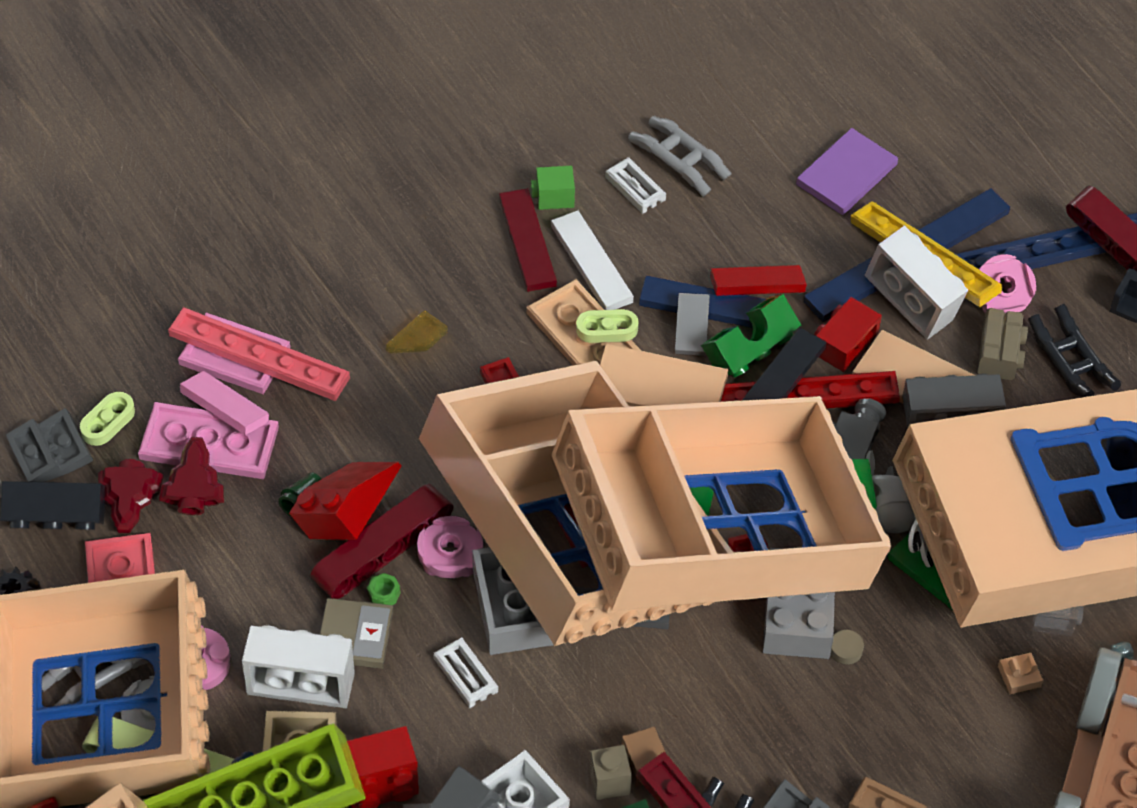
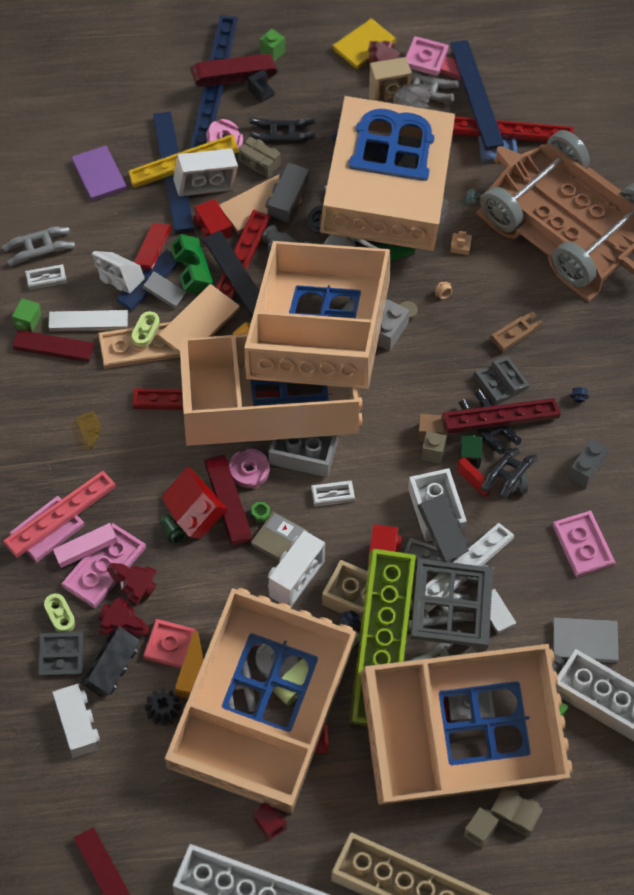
camera: 65 degrees left, 5 degrees up
(684, 251) = (118, 271): none -> white slope
(913, 680) = (443, 290): none -> light nougat plate

